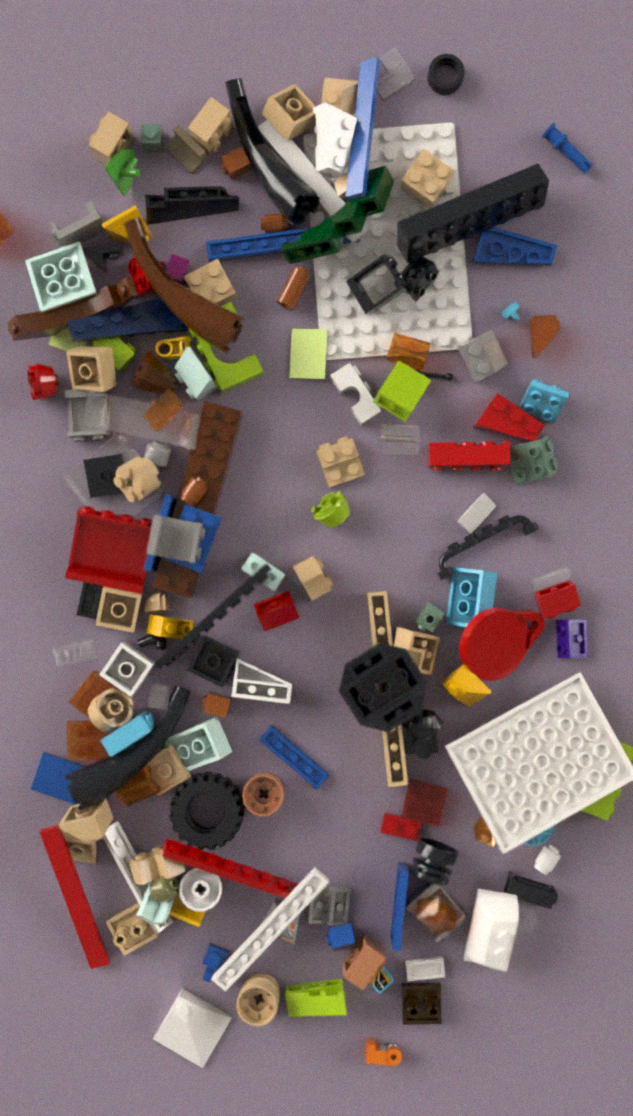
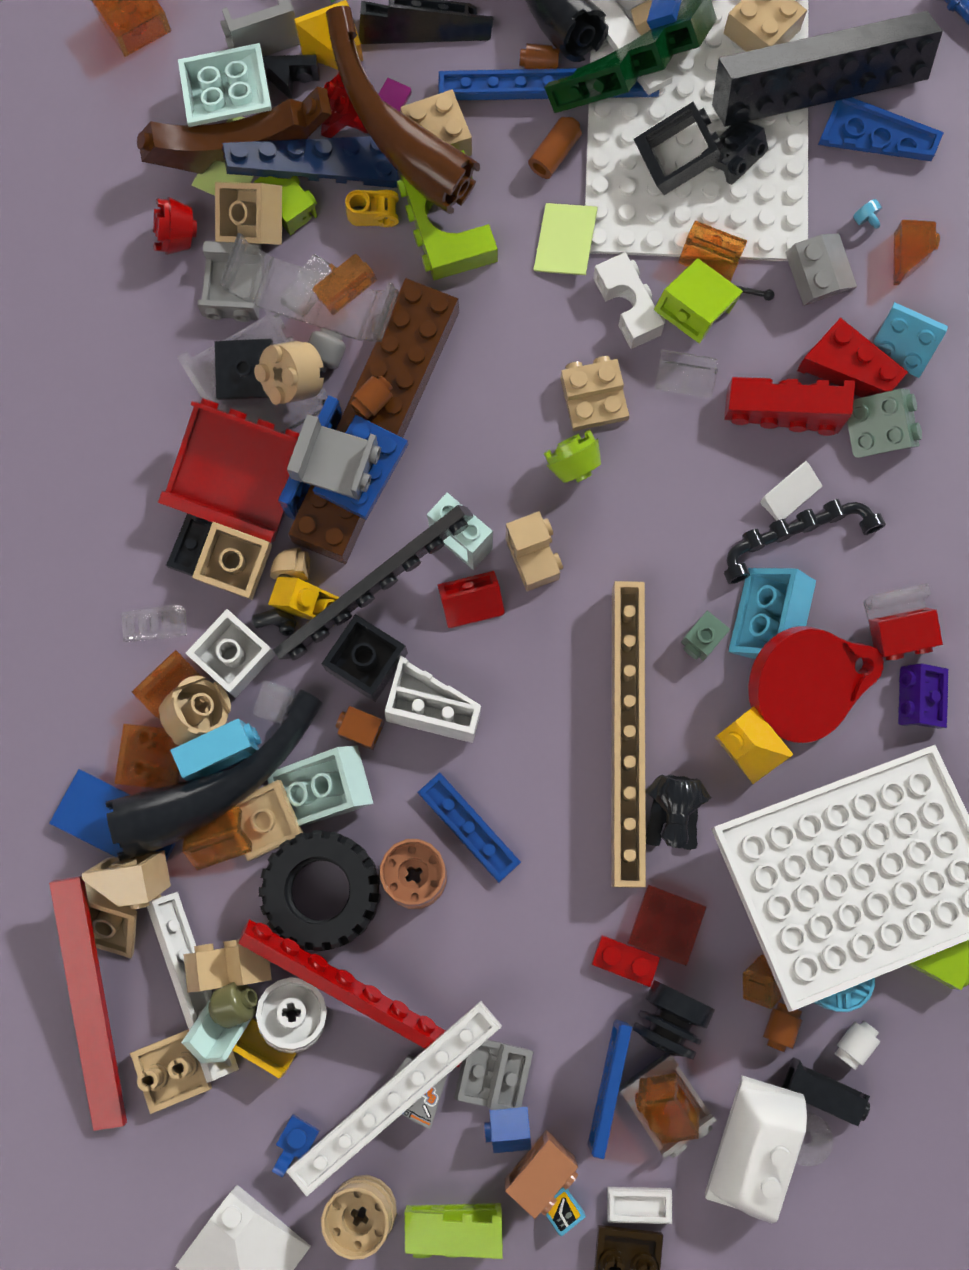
camera: 10 degrees right, 10 degrees down
(153, 375) = (334, 236): reddish brown cone -> none
(194, 375) = (396, 240): light aqua slope -> none
(383, 708) = (632, 686): black piece -> none
(420, 646) = (686, 680): tan brick -> none
(499, 859) = (782, 1027): none -> dark orange brick

